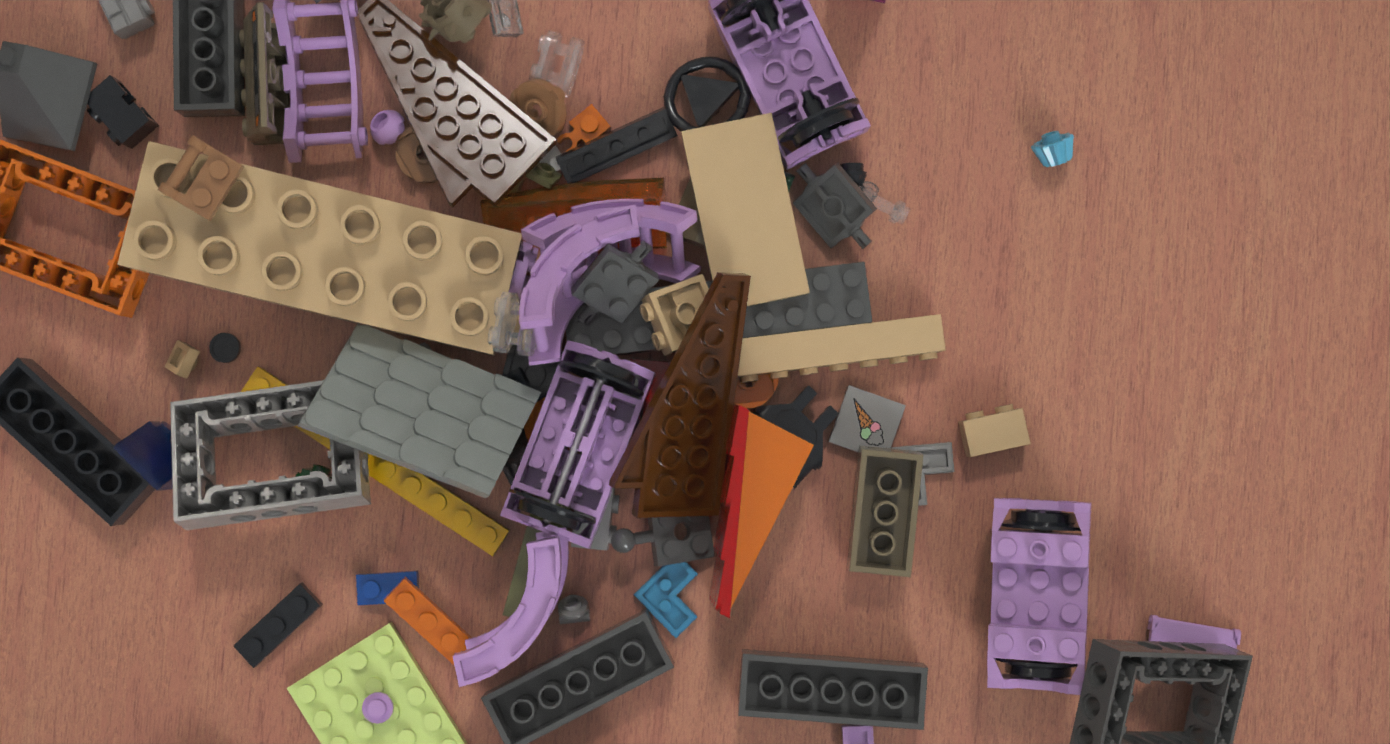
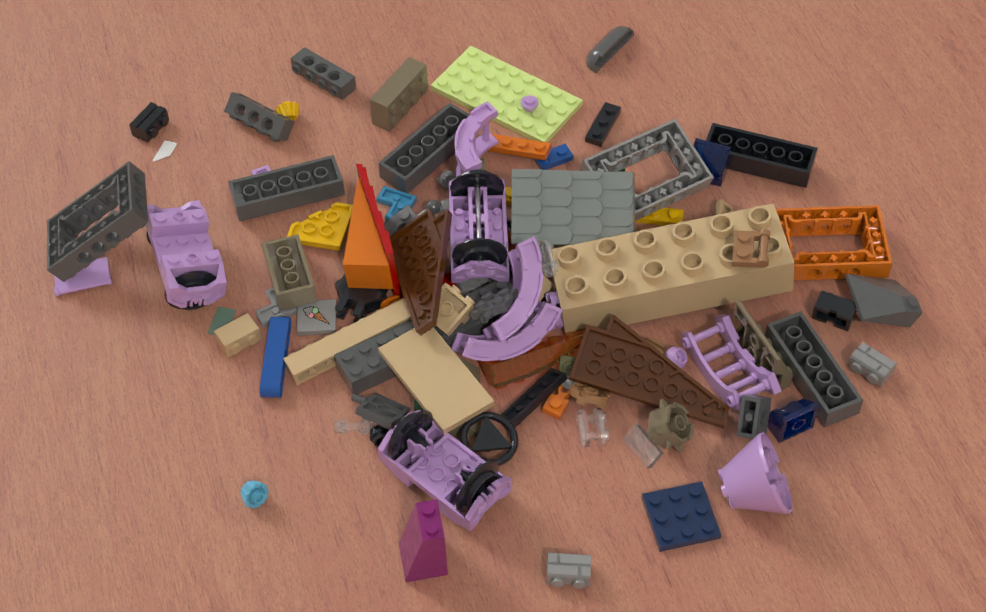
camera: 155 degrees right, 35 degrees down
(798, 590) = (324, 228): none -> yellow plate
(950, 371) = (274, 365): none -> blue beam
(1006, 476) = (221, 318): none -> sand green sticker

